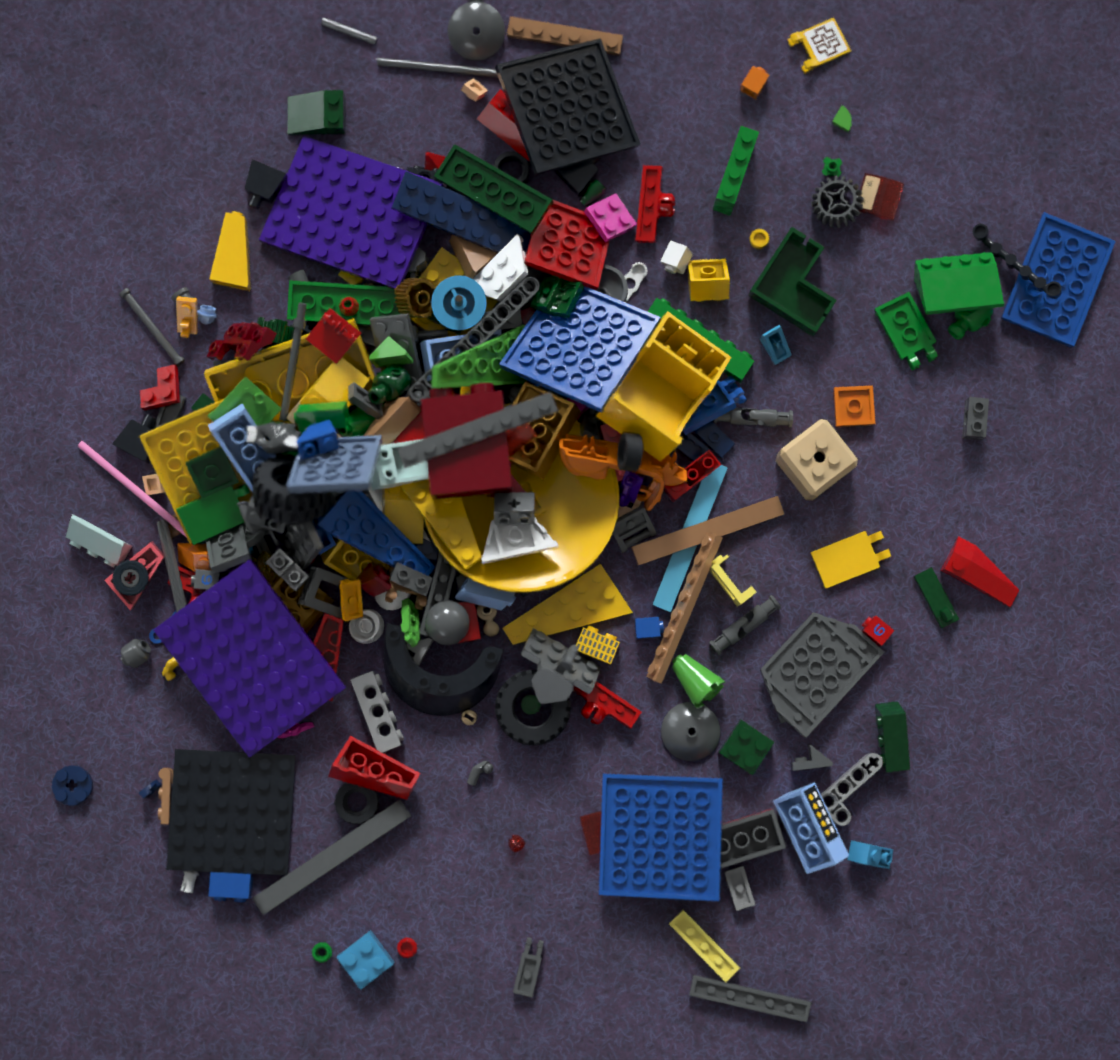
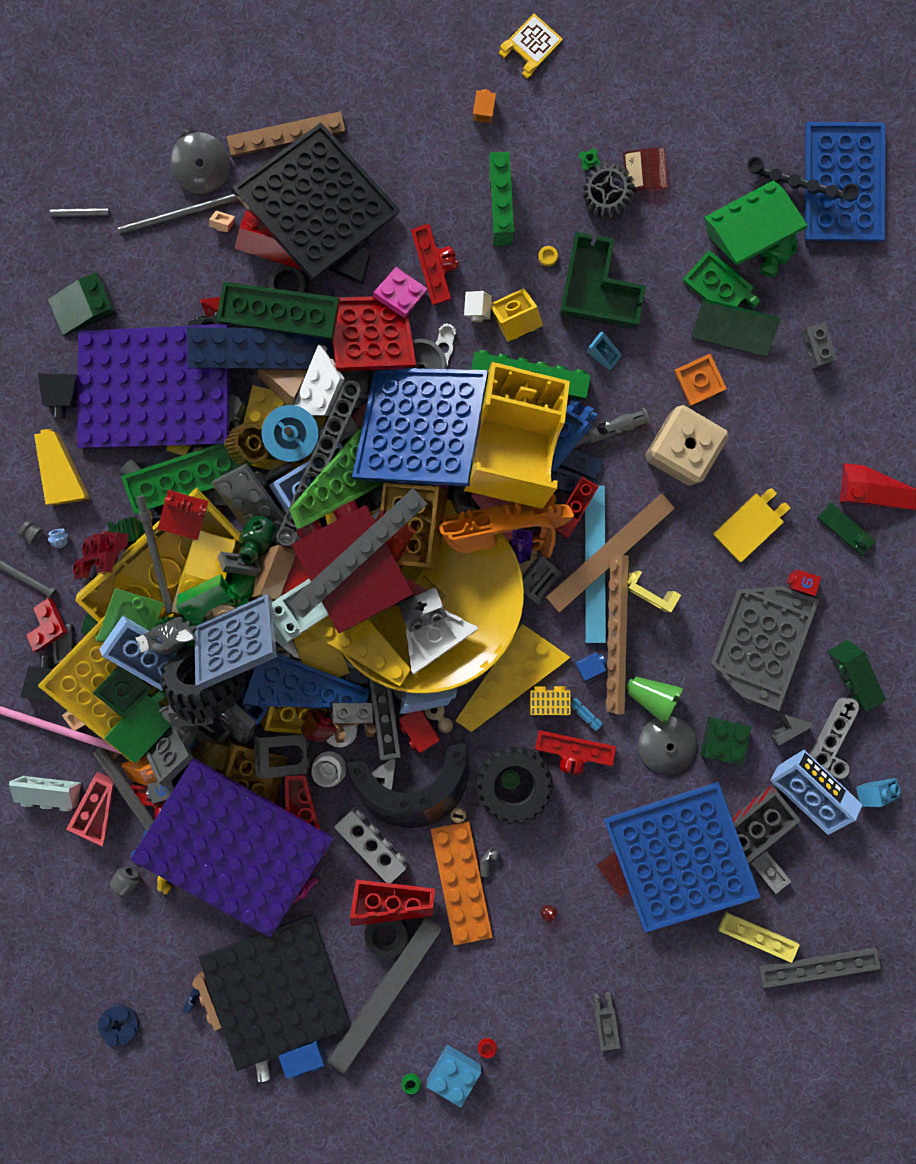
camera: 20 degrees left, 5 degrees up
(138, 584) = (89, 828): black bush -> none
(186, 316) = (39, 548): light orange plate -> none
(287, 569) = (233, 751): light grey slope -> none
(317, 440) = (207, 625): blue slope -> none
(351, 310) = (192, 480): red cone -> none
(351, 599) = (304, 754): light orange plate -> none
(389, 353) = (244, 508): bright green slope -> none
(410, 622) = (368, 753): bright green hinge -> none
(446, 782) = (461, 882): none -> orange plate
(447, 622) = (403, 739): dark grey piece -> none
(557, 296) = (380, 389): dark green slope -> none
(558, 668) = (523, 740): dark grey plate -> none
(592, 193) = (373, 275): dark green cone -> none
(625, 671) = (585, 714): none -> dark azure axle
(630, 452) = (511, 513): black tyre -> none
(758, 615) = (677, 630): dark grey piece -> none
(843, 119) = (581, 109): bright green tile -> none
(905, 371) = (735, 327): none -> dark green tile

